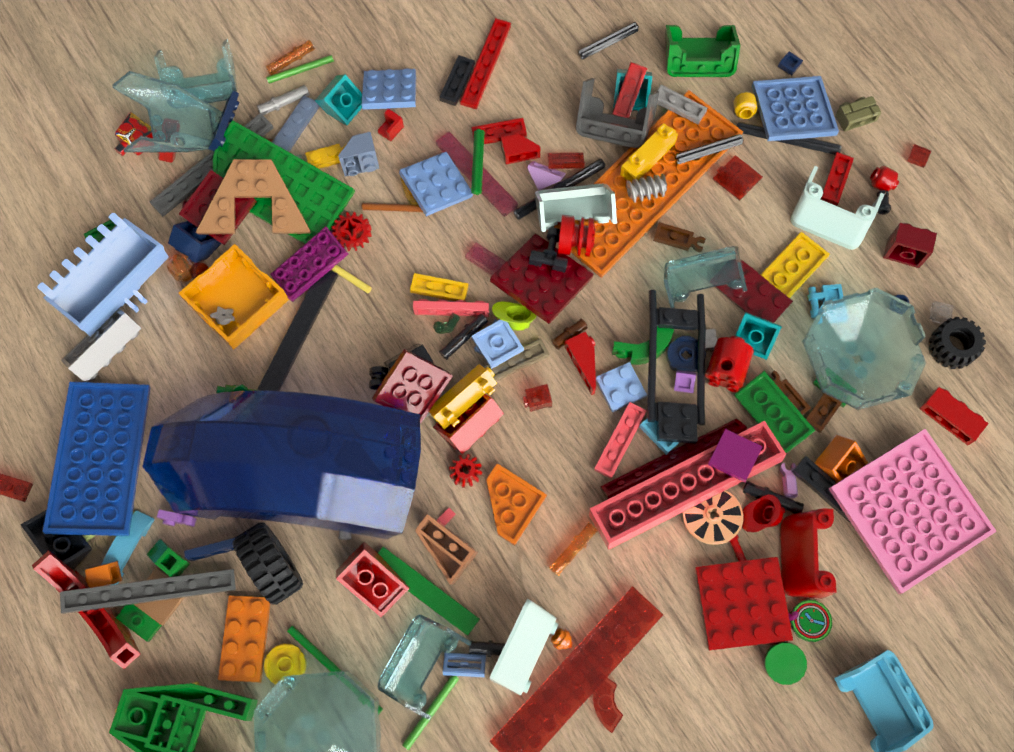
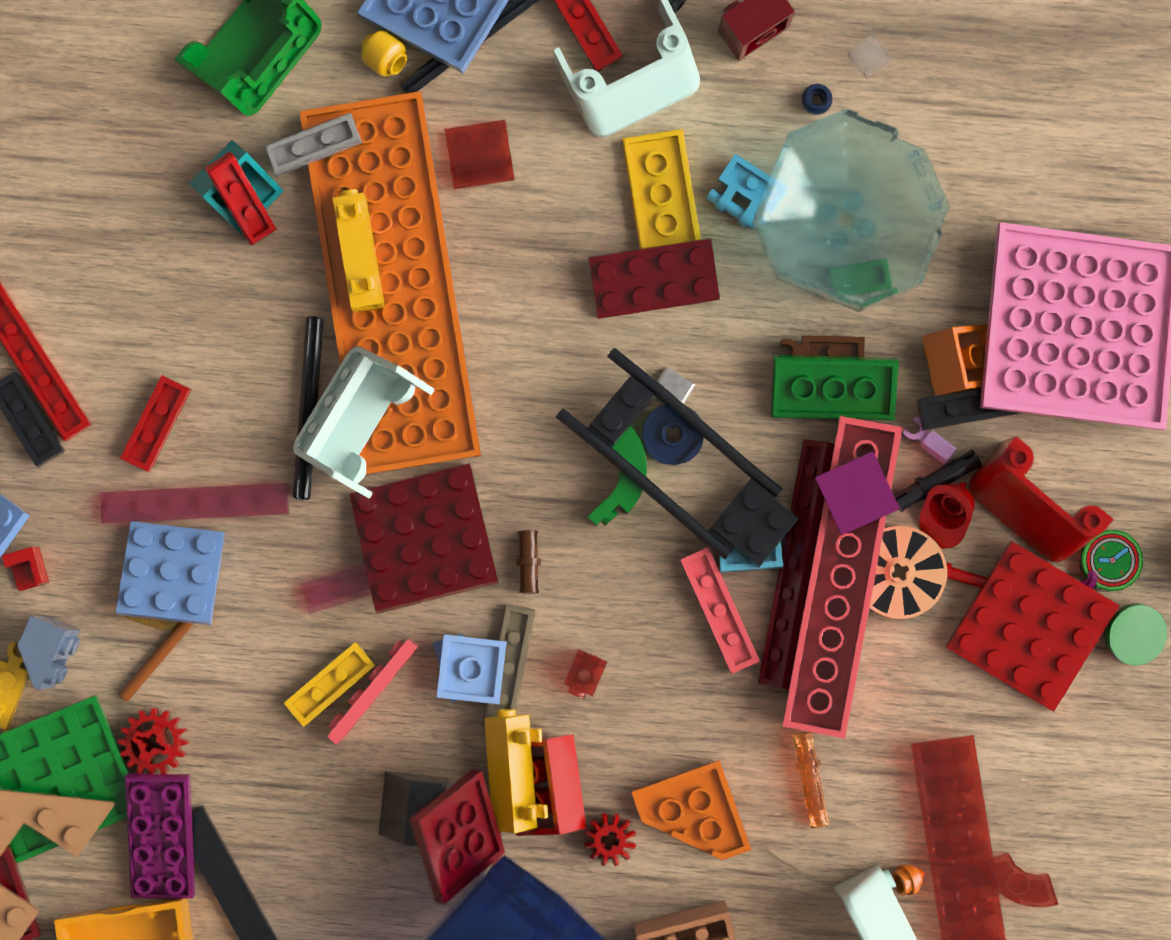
camera: 55 degrees left, 15 degrees up
(346, 275) = (225, 790): light yellow bar -> none
(377, 375) = (398, 860): black wheel -> none
(446, 327) = (392, 715): clear green arm -> none
(446, 516) = (648, 905): coral piece -> none
(477, 166) = (184, 493): green axle -> none
(479, 321) = (424, 703): black pin -> none
(513, 313) = (446, 619): lime piece -> none
(518, 149) = (203, 419): red slope -> none
(543, 175) = (271, 412): lavender slope -> none
(549, 255) = (406, 509): black bar -> none
(565, 160) = (273, 366): clear red tile -> none
(576, 235) = (406, 453): red wheel -> none
(582, 354) = (574, 569): red slope -> none
(608, 40) = (129, 154): axle -> none
(611, 128) = (273, 264): dark grey windscreen -> none
(620, 387) = (649, 551): light blue plate -> none
(647, 187) = (408, 297): light grey piece -> none
(677, 237) = (503, 310): reddish brown plate -> none
(685, 381) = (707, 466): medium lavender plate -> none
(703, 272) = (580, 320): clear light blue windscreen -> none
(708, 149) = (412, 162): axle -> none
(729, 363) = (722, 383): red cylinder -> none
(758, 334) = (719, 326): teal slope -> none
(823, 412) = (881, 330): reddish brown plate -> none
(954, 415) = (1009, 166): red brick -> none
(966, 333) = (936, 56): black tyre -> none

